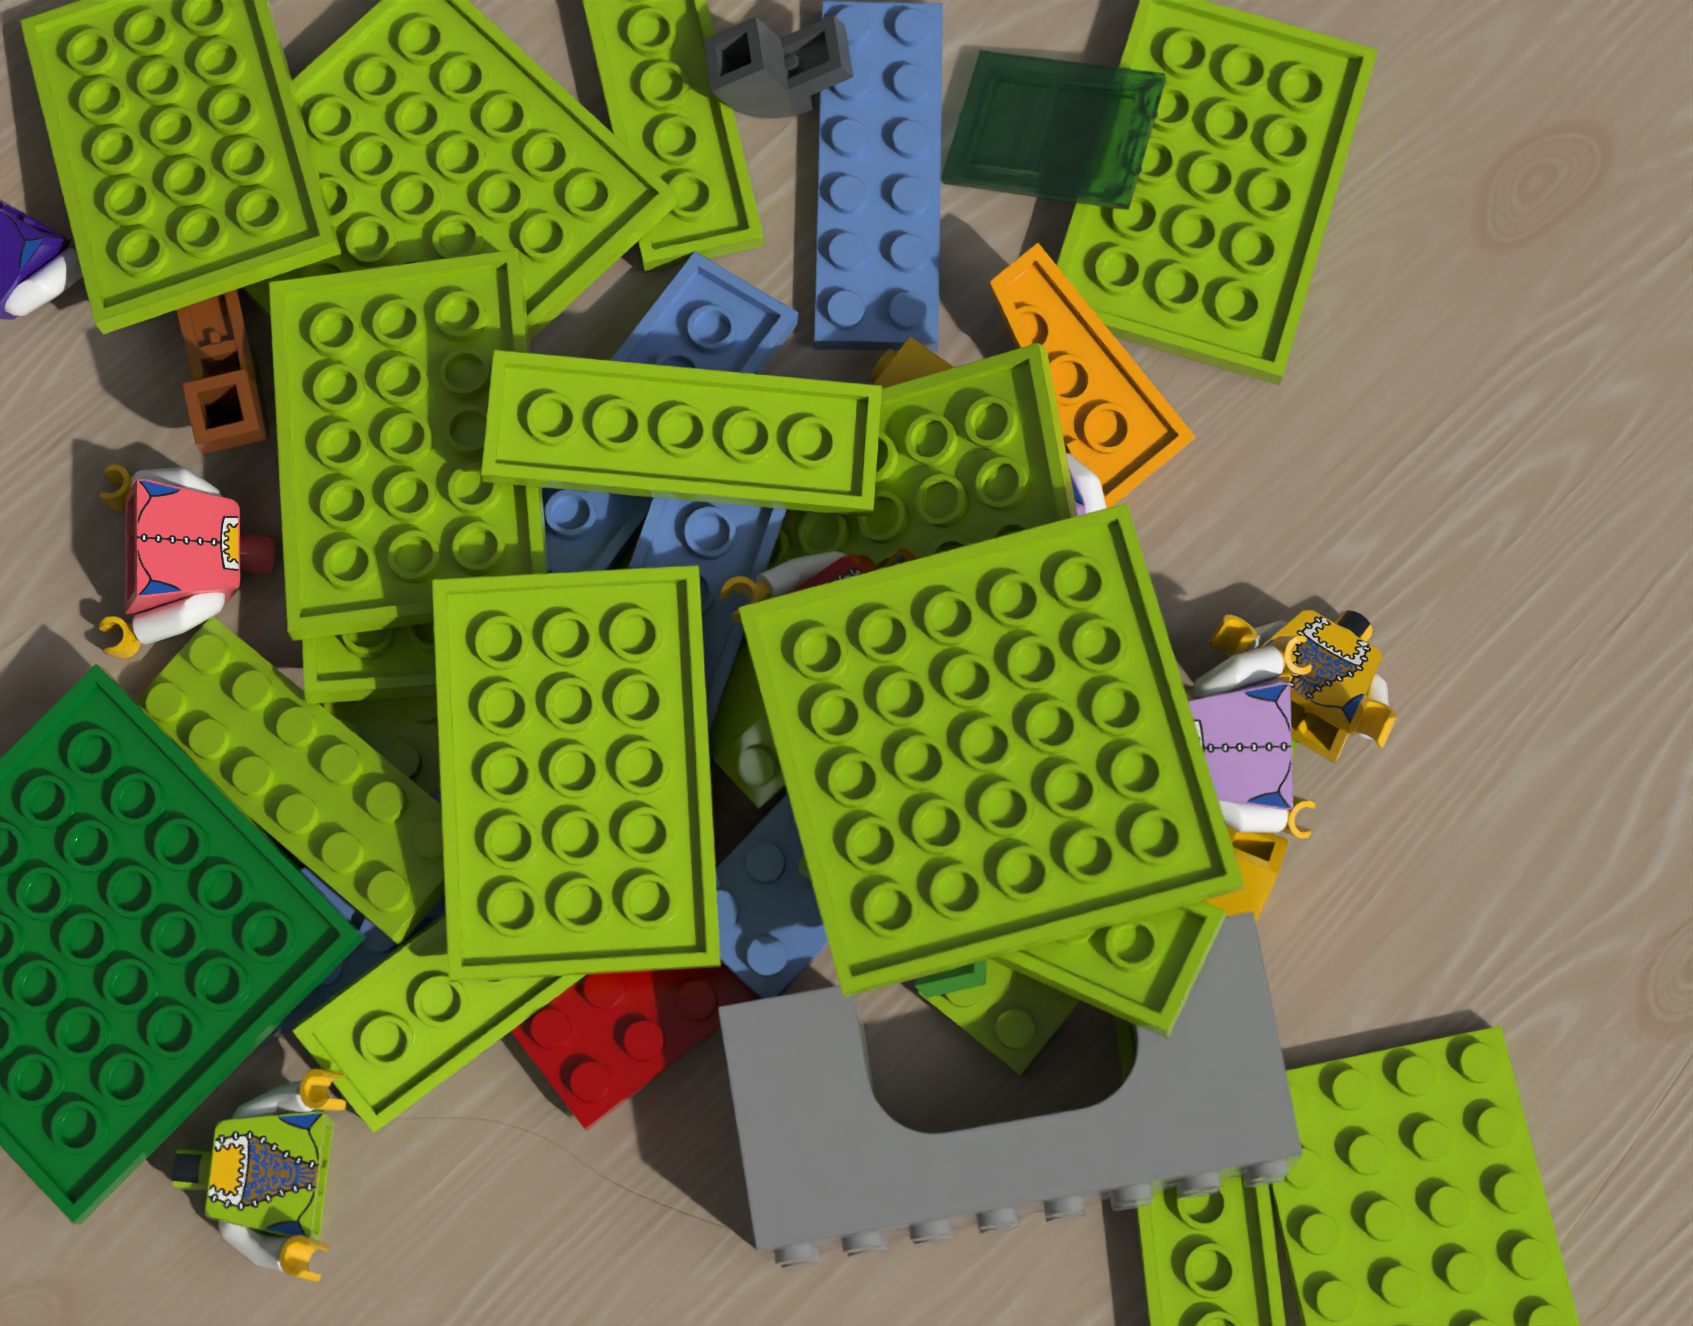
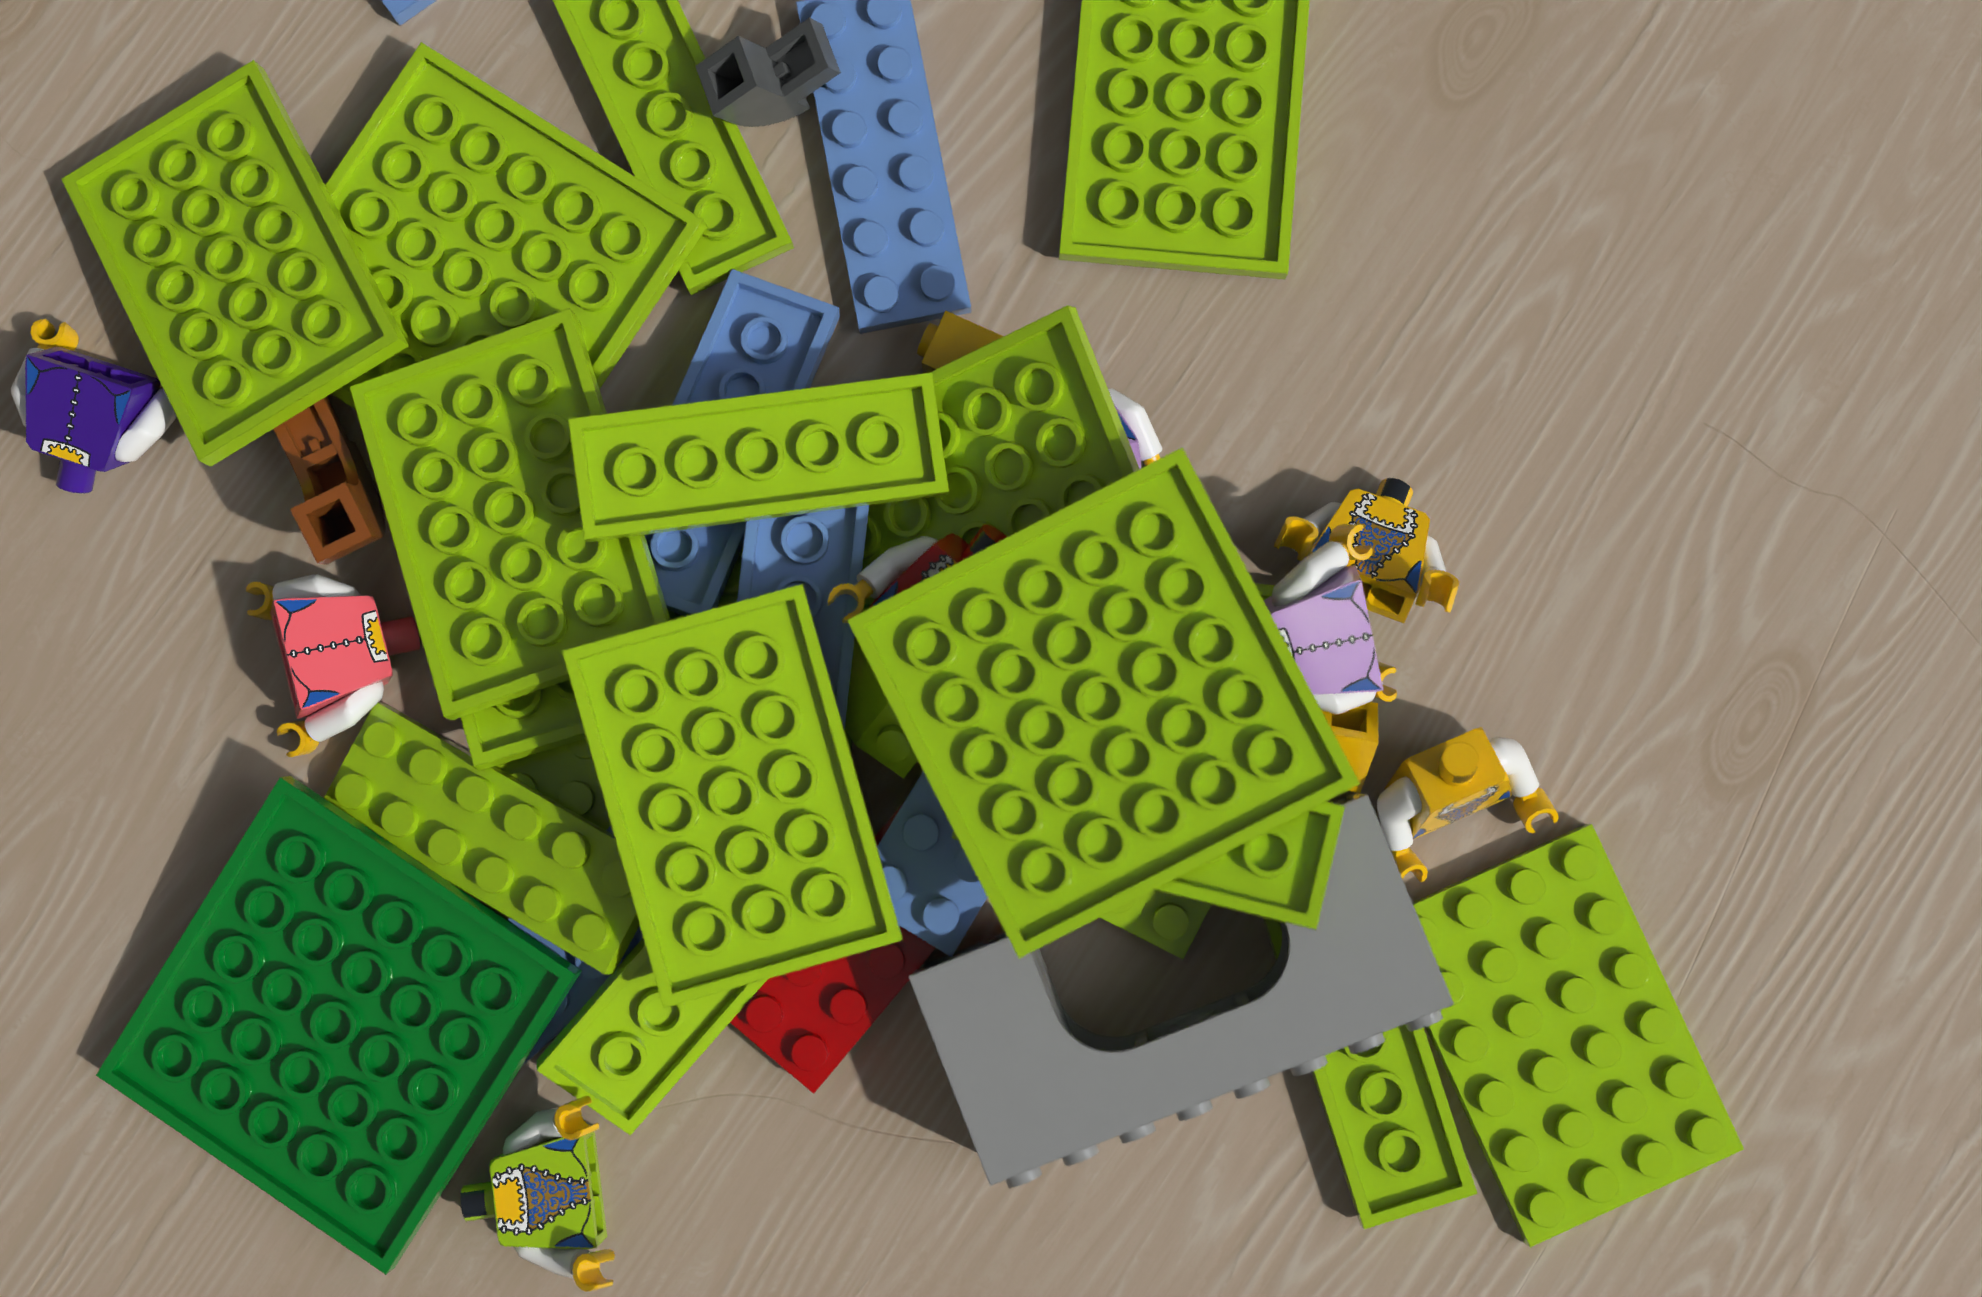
camera: 10 degrees left, 10 degrees up
(1054, 129) = (1034, 82): clear green piece -> none
(1104, 400) = (1135, 334): light orange wing -> none
(1355, 944) = (1452, 784): none -> torso

